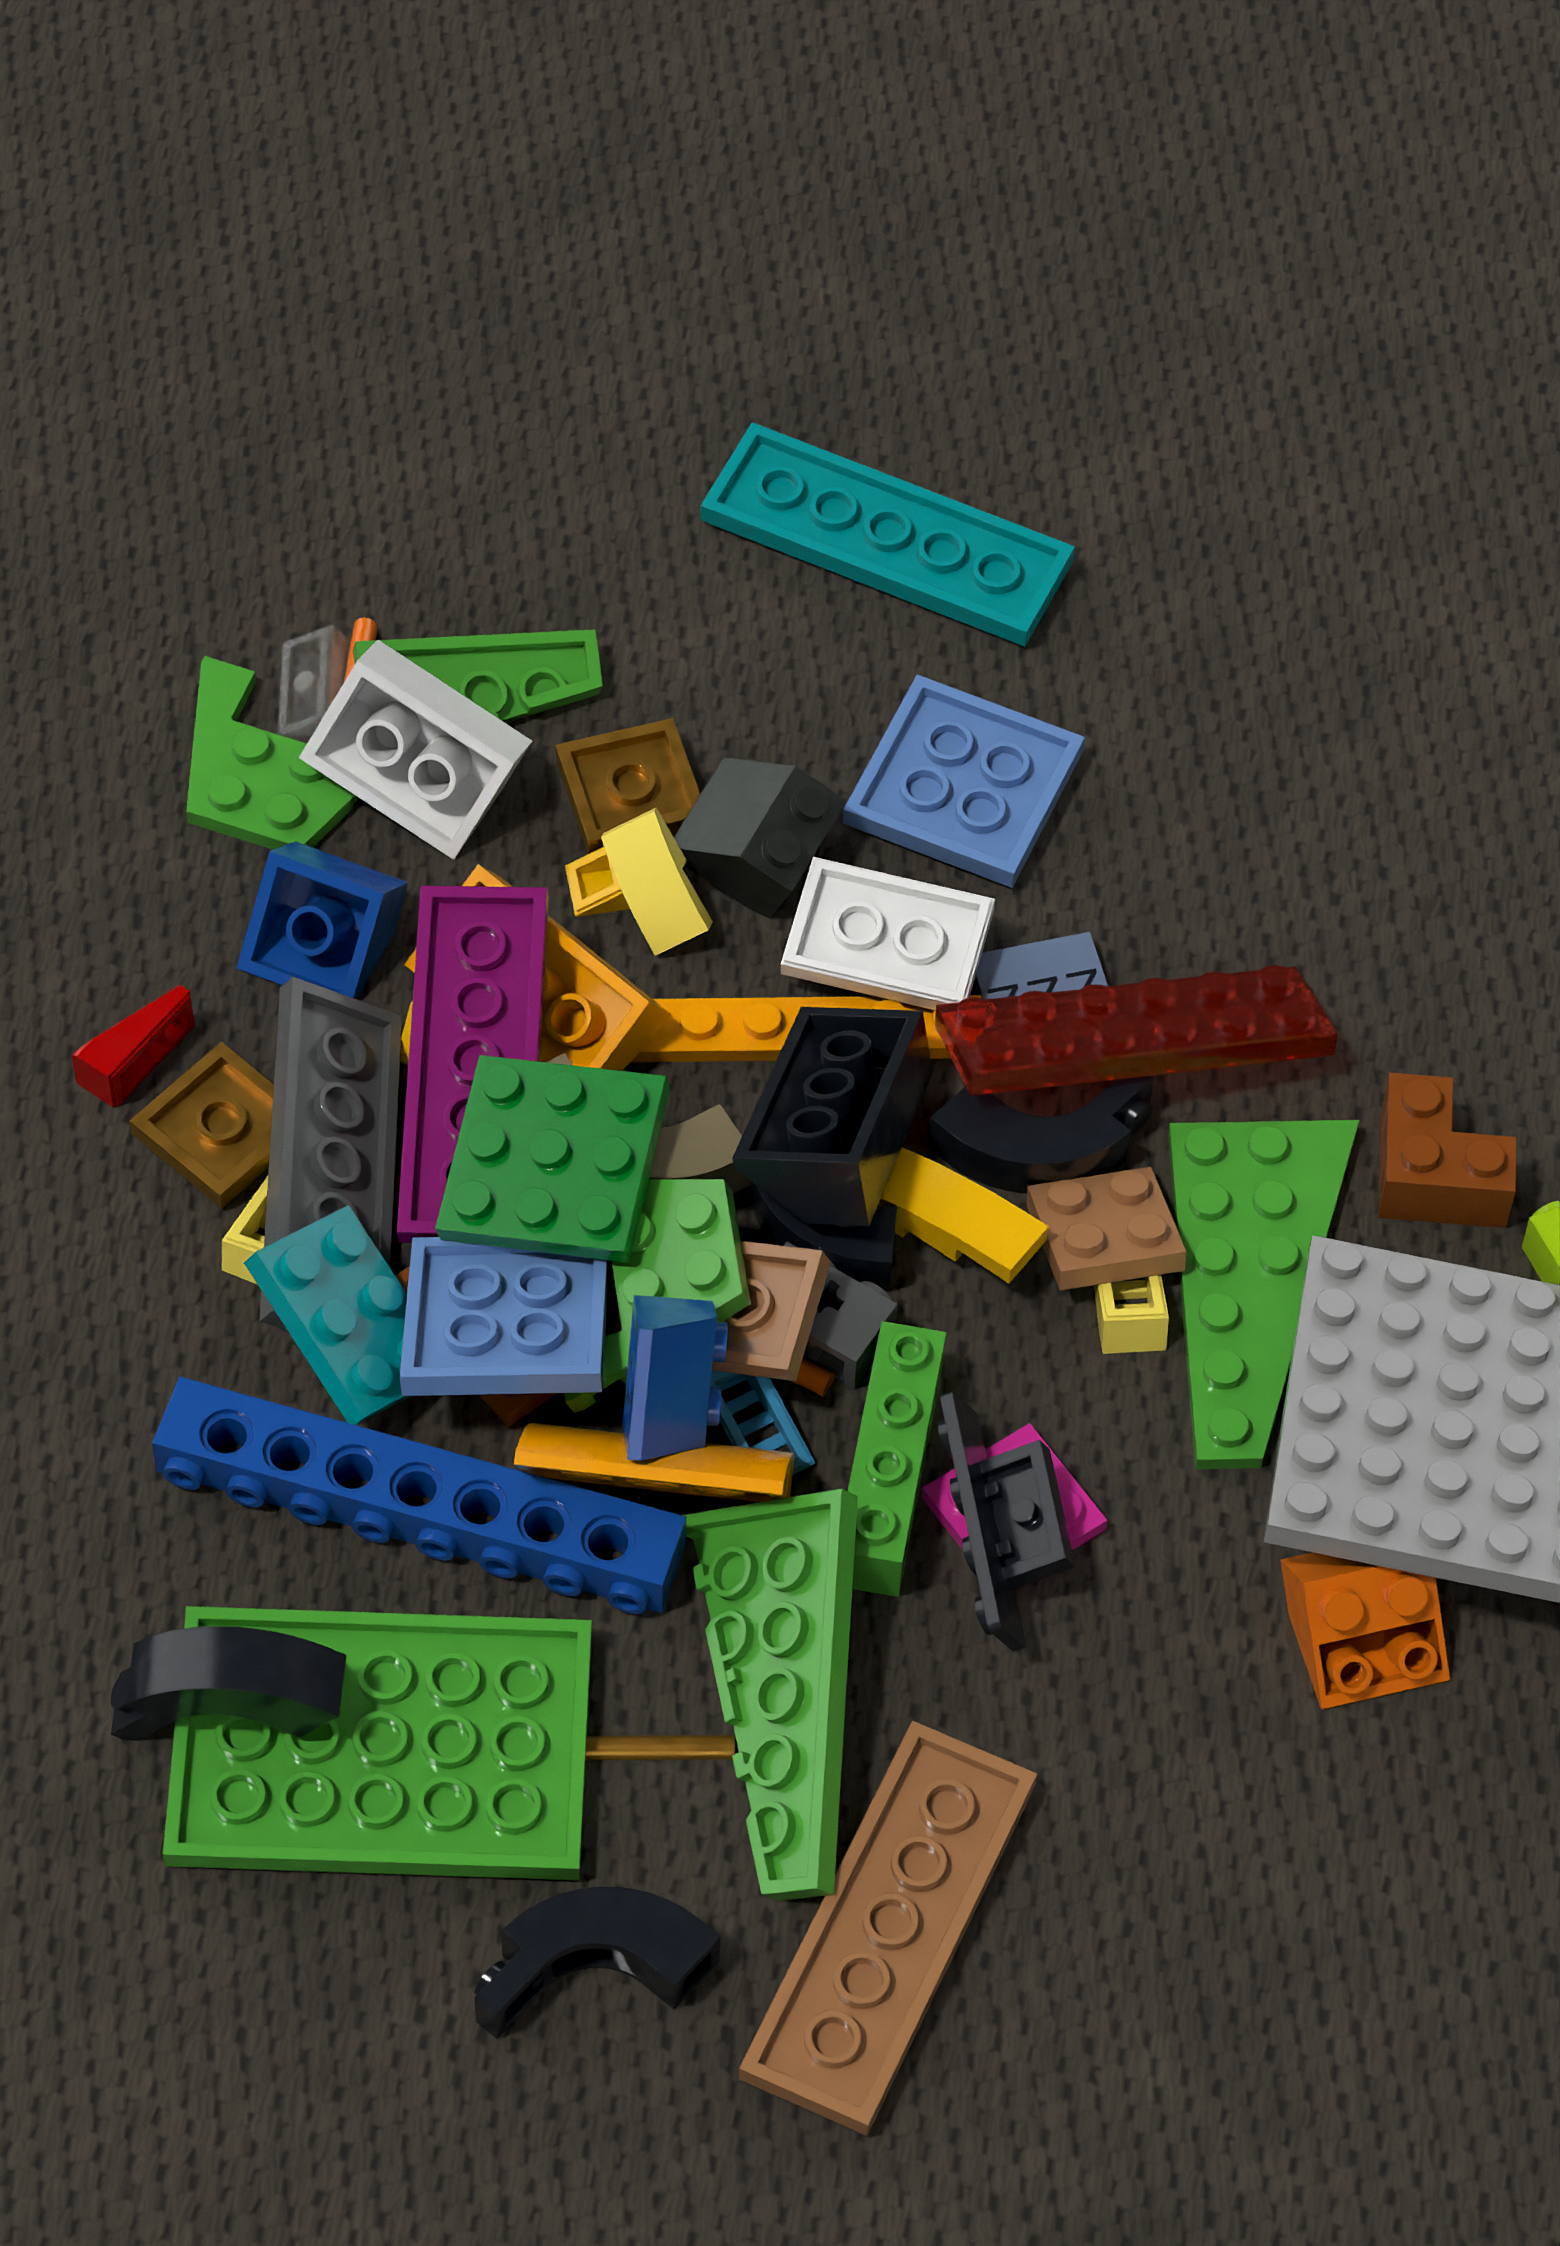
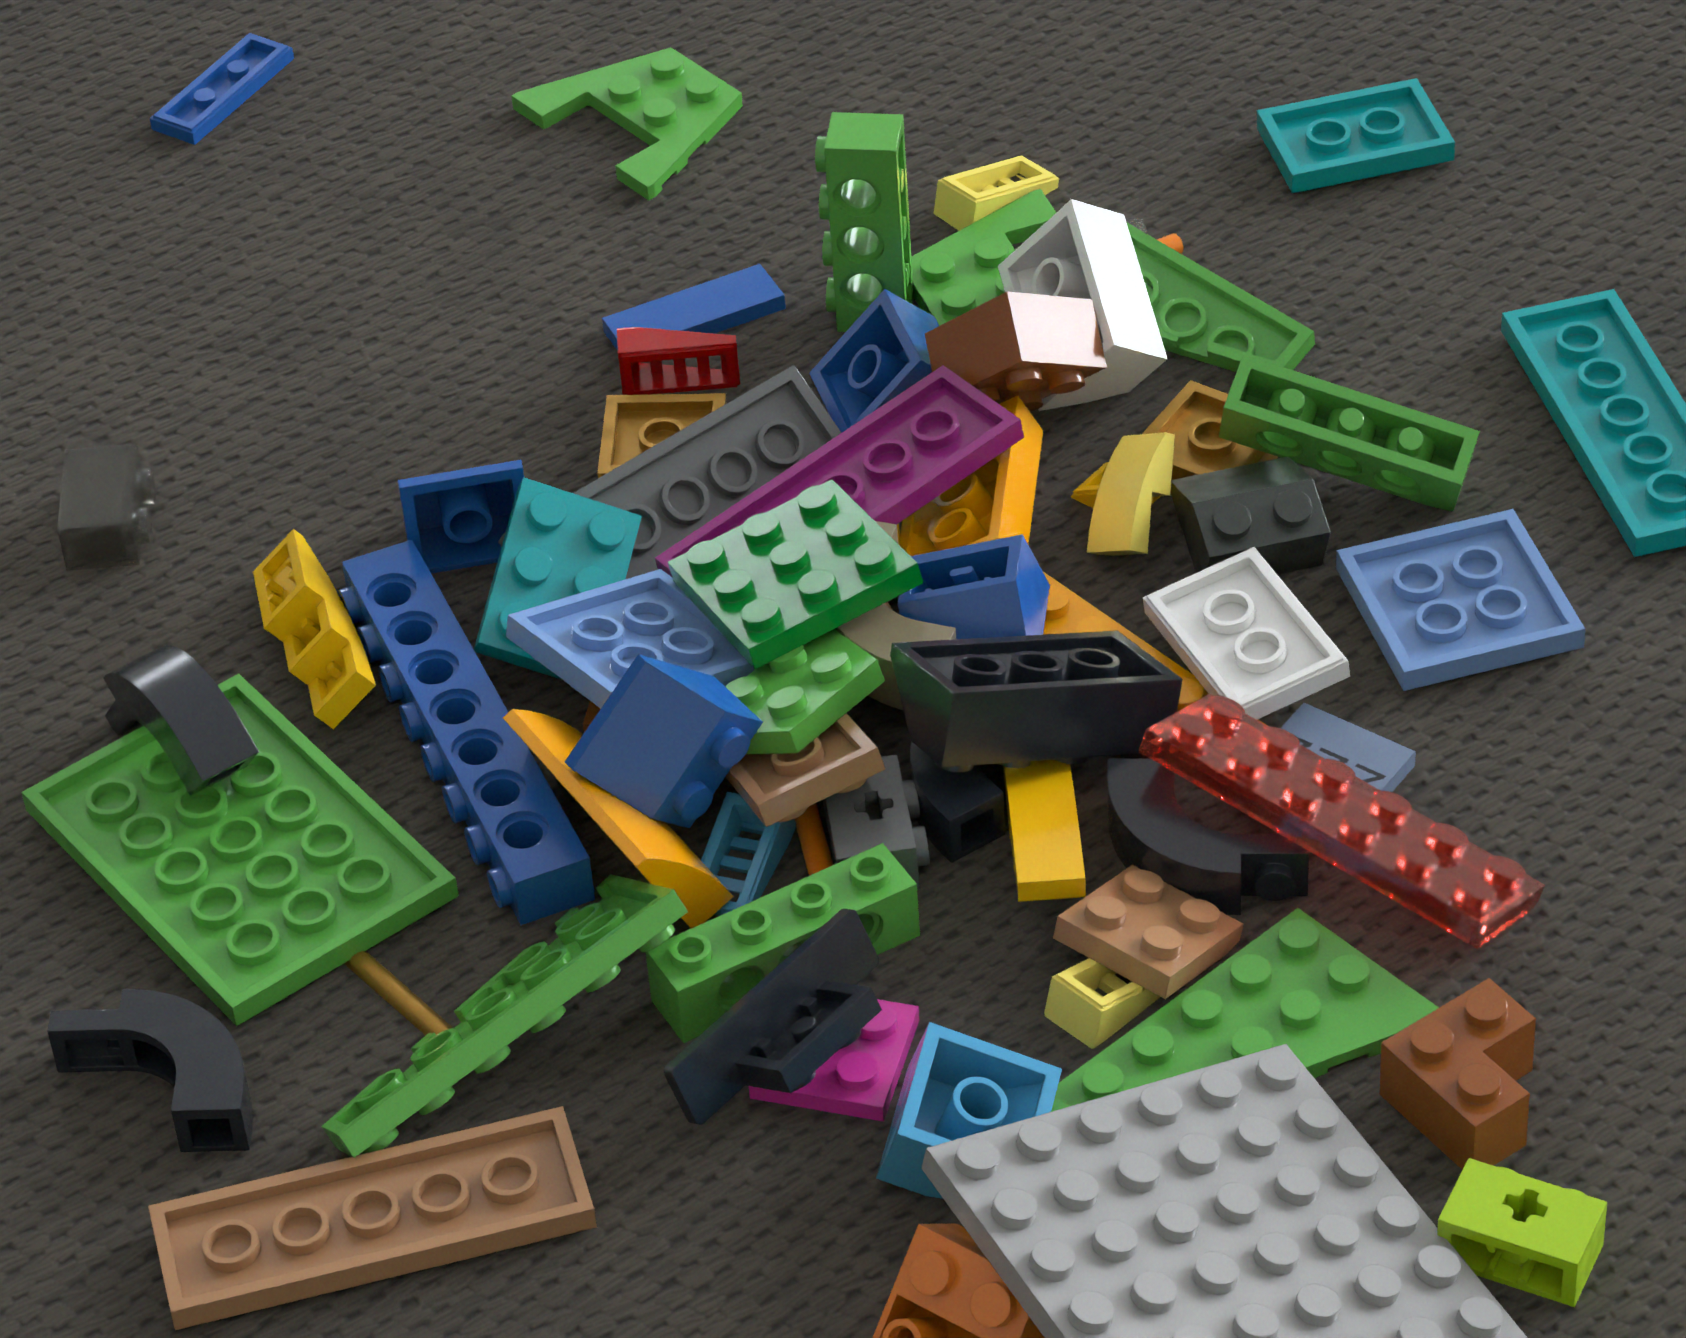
camera: 55 degrees right, 15 degrees down
(75, 986) = (705, 307): none -> blue tile
(165, 719) = (974, 194): none -> light yellow slope
(176, 1315) = (460, 514): none -> blue slope
(186, 1517) = (315, 628): none -> yellow slope
(205, 802) = (865, 212): none -> bright green brick
(381, 420) = (1355, 135): none -> teal plate
(443, 826) = (1021, 346): none -> dark orange brick
(696, 1057) = (981, 590): none -> blue slope
(752, 704) = (1347, 433): none -> bright green brick
(1186, 1478) = (955, 1091): none -> dark azure slope

